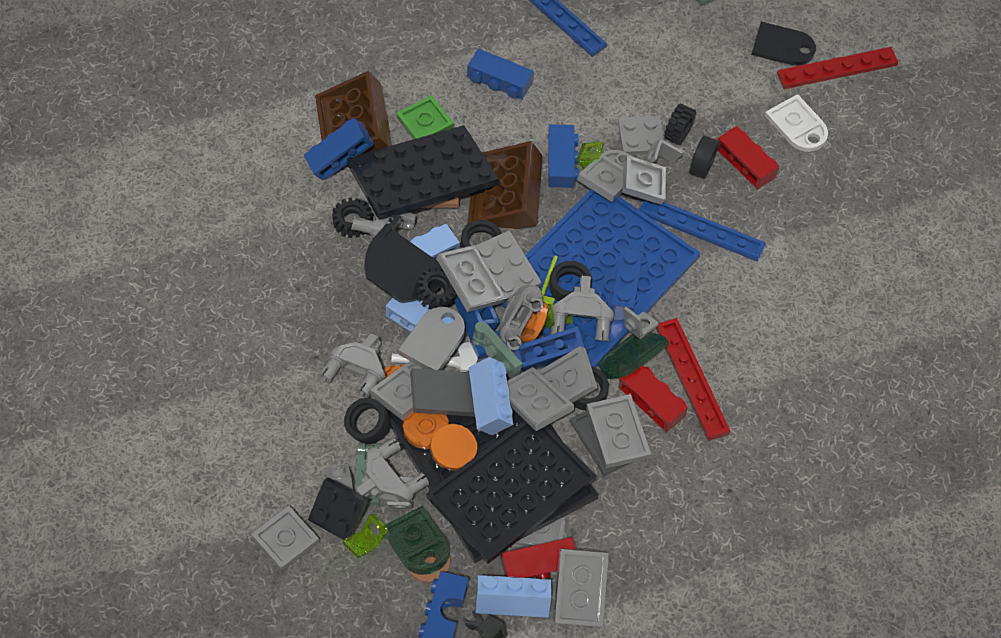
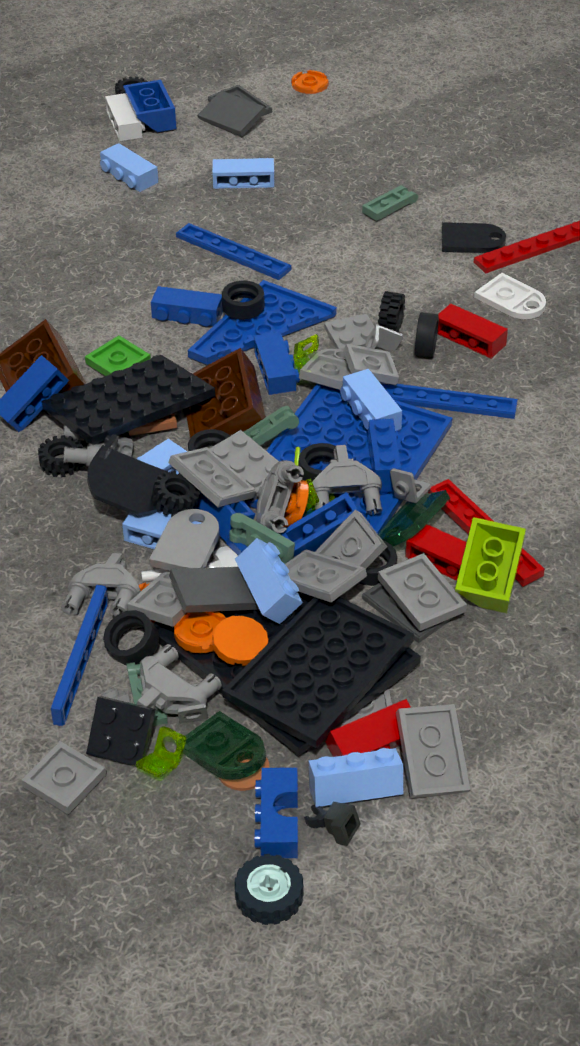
camera: 10 degrees left, 15 degrees down
(323, 426) = (79, 656): none -> blue tile
(537, 229) = (273, 425): none -> sand green plate
(550, 68) = (243, 289): none -> black tyre
(566, 98) = (283, 312): none -> blue wing
(631, 222) = (369, 398): none -> light blue brick
(682, 420) = (490, 564): none -> lime slope

